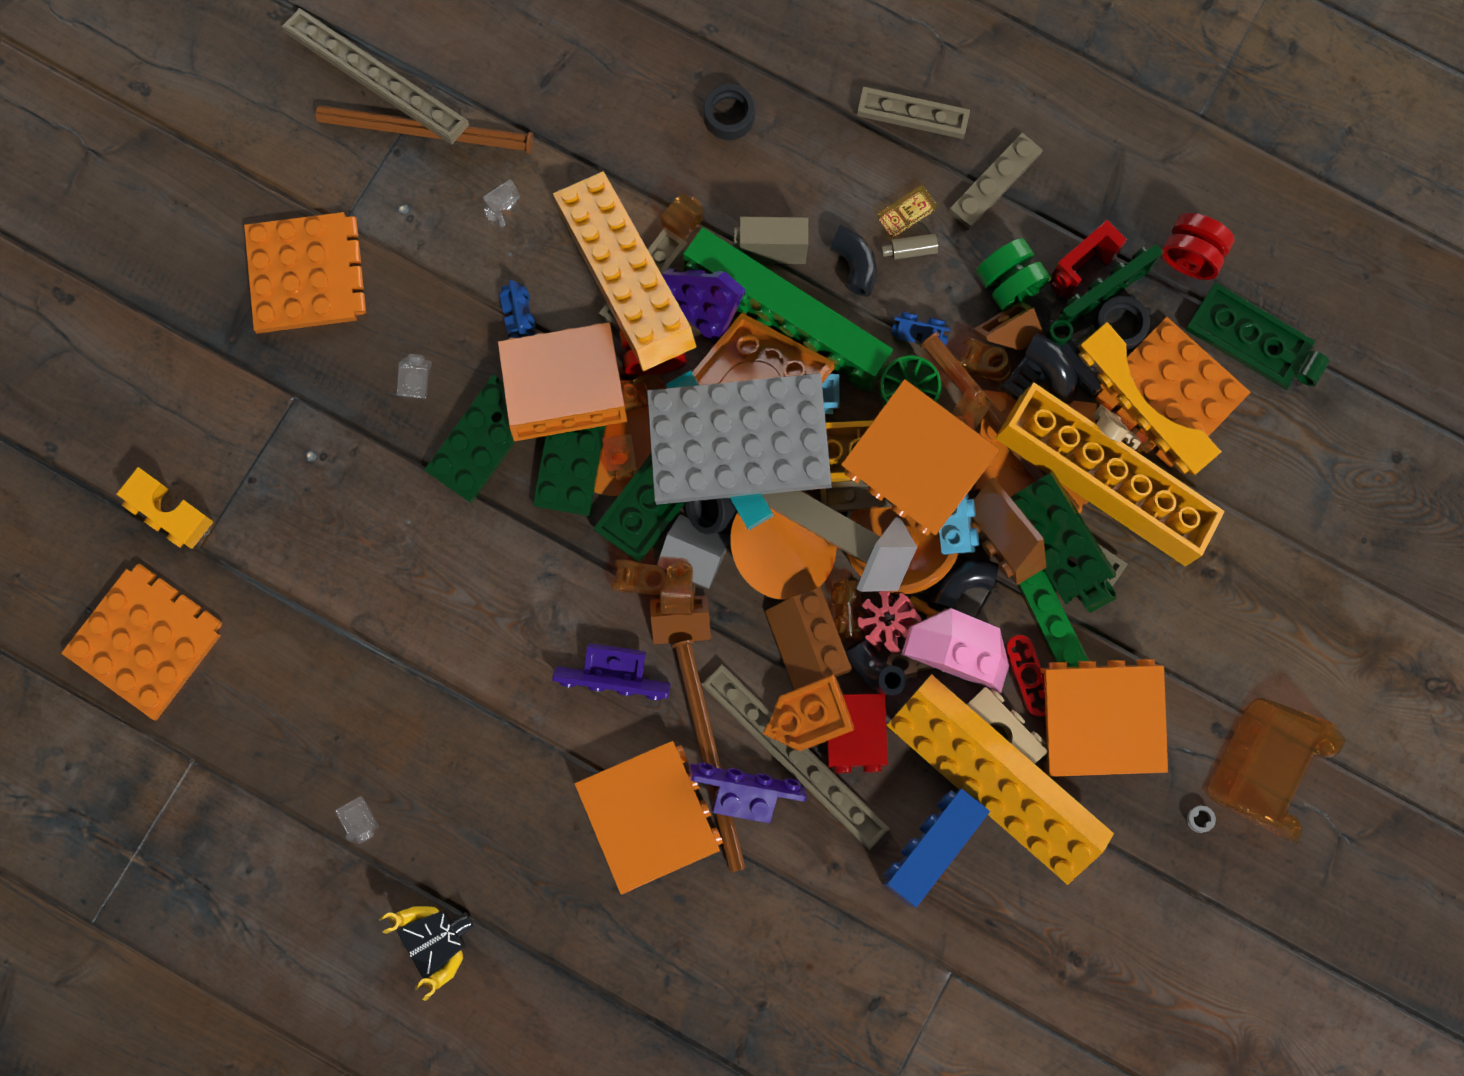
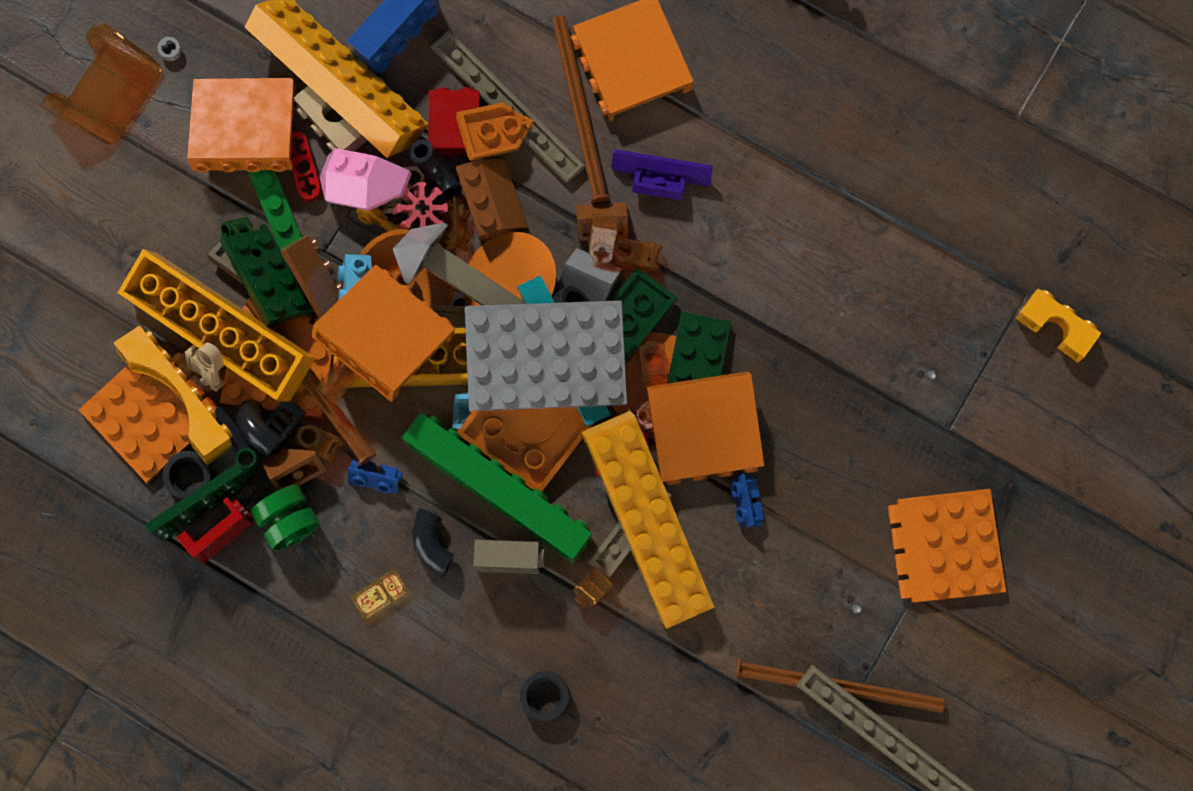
camera: 175 degrees left, 0 degrees up
(144, 640) = (1067, 214): orange hinge -> none
(357, 820) = (875, 62): clear bracket -> none
(413, 376) = (841, 441): clear bracket -> none
(475, 444) = (784, 376): dark green hinge -> none
(500, 198) = (761, 610): clear bracket -> none
(706, 299) = (565, 491): dark purple plate -> none
(746, 794) = (549, 73): dark purple bracket -> none
(911, 247) = (378, 556): dark tan cylinder -> none
(913, 112) = (366, 691): dark tan plate -> none
(914, 370) = (386, 419): green wheel -> none
(960, 578) = (335, 249): black cylinder -> none
(995, 181) = (292, 622): dark tan plate -> none
(1197, 246) = (109, 542): red wheel -> none
(1247, 331) = (76, 464): dark green hinge -> none

